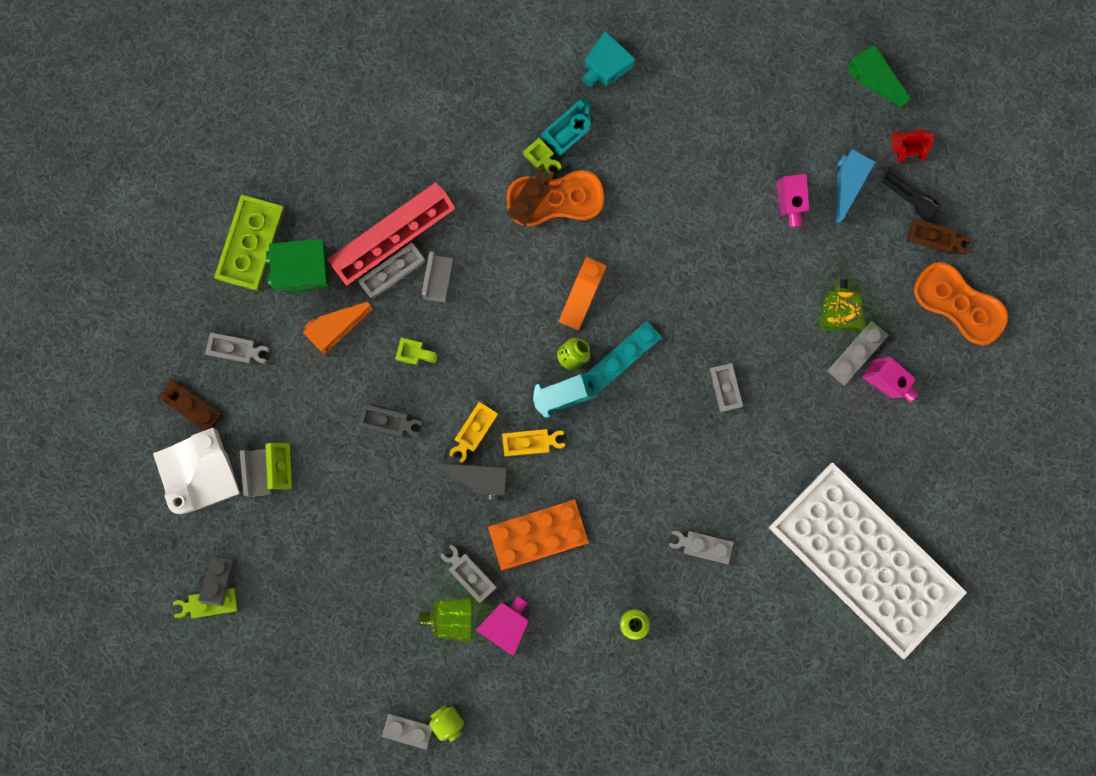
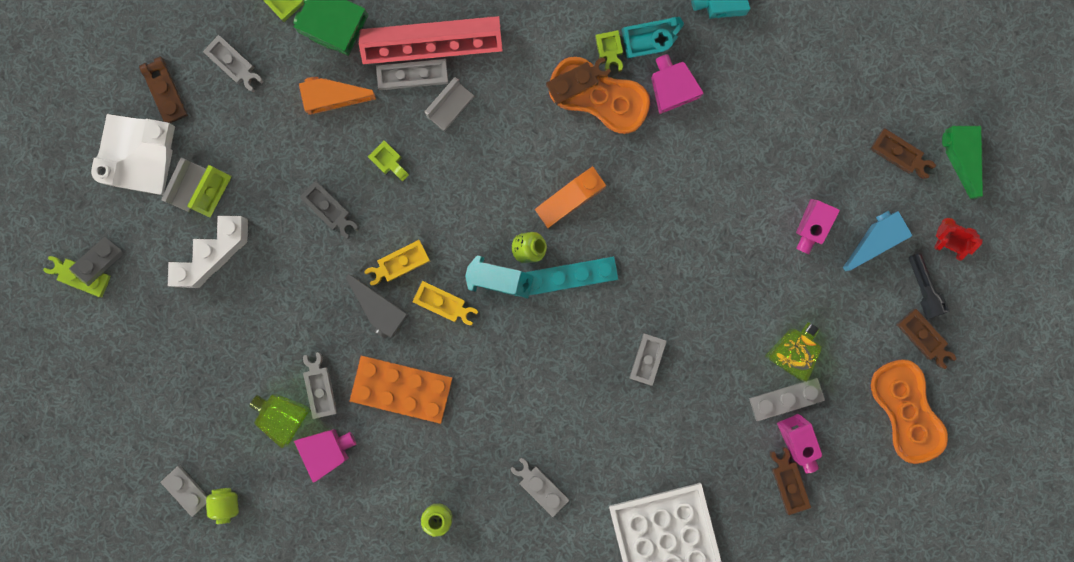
camera: 35 degrees right, 5 degrees up
(310, 517) = (210, 254): none -> white brick
(611, 155) = (673, 85): none -> dark pink torso
(825, 103) = (901, 153): none -> reddish brown plate
(902, 419) = (789, 483): none -> reddish brown plate

